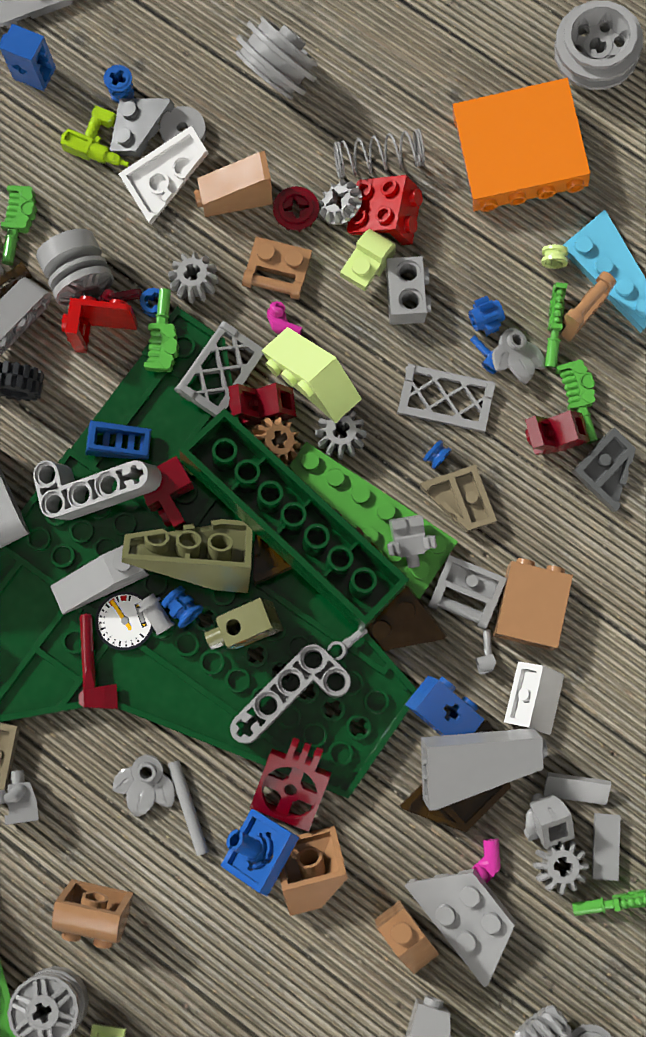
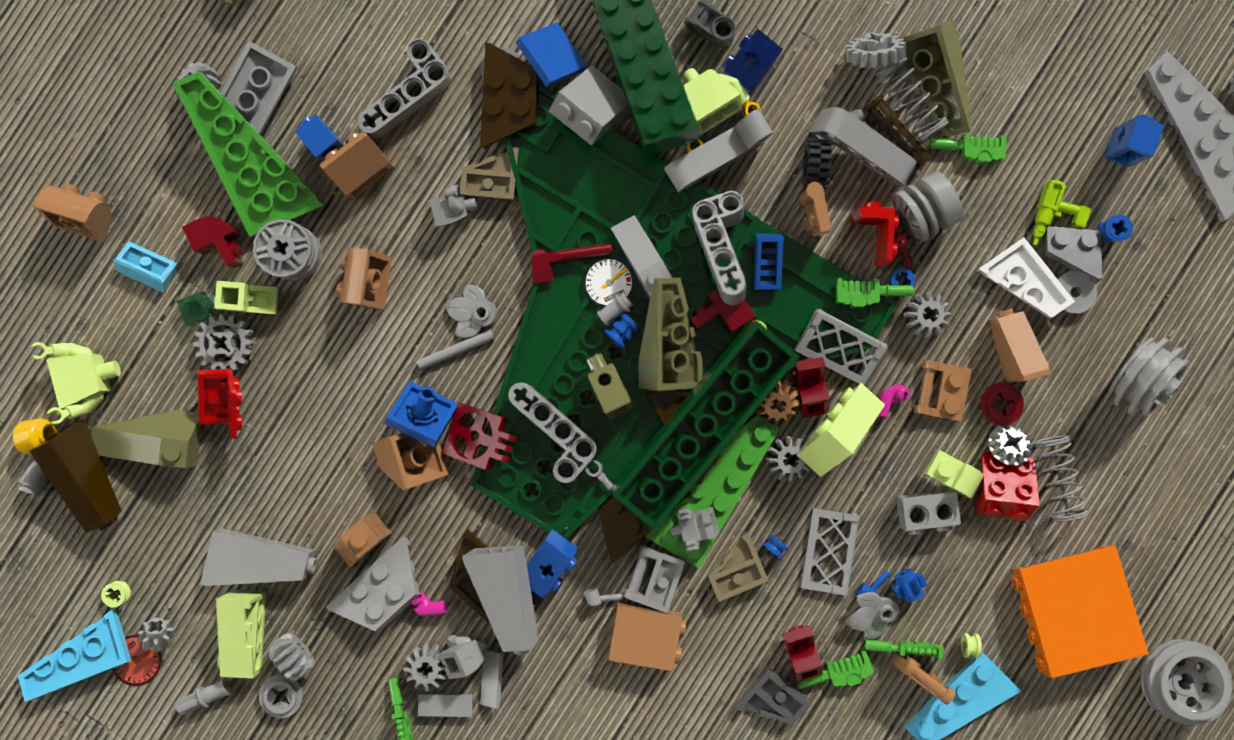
camera: 85 degrees right, 10 degrees up
(74, 384) = (817, 219): none -> medium nougat plate
(534, 697) = (566, 640): white panel -> none

